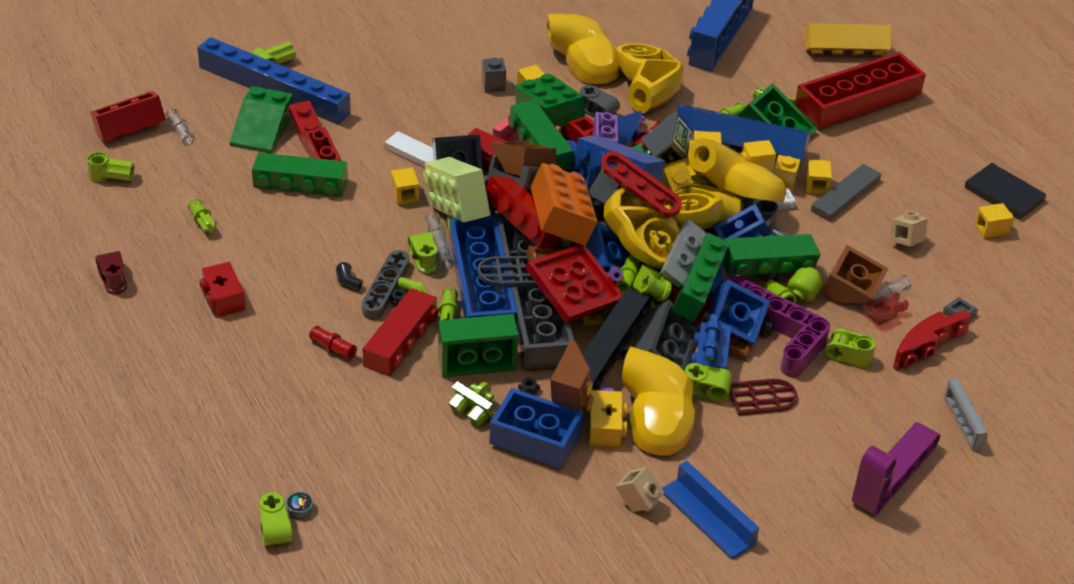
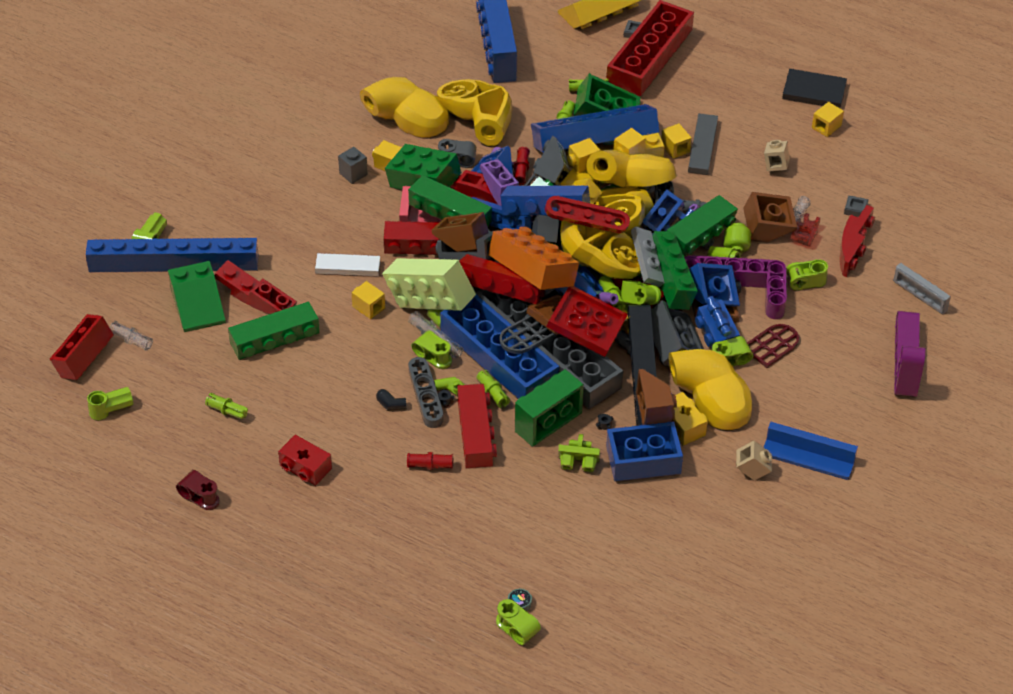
camera: 30 degrees left, 5 degrees up
(462, 148) = (397, 244): black brick -> none

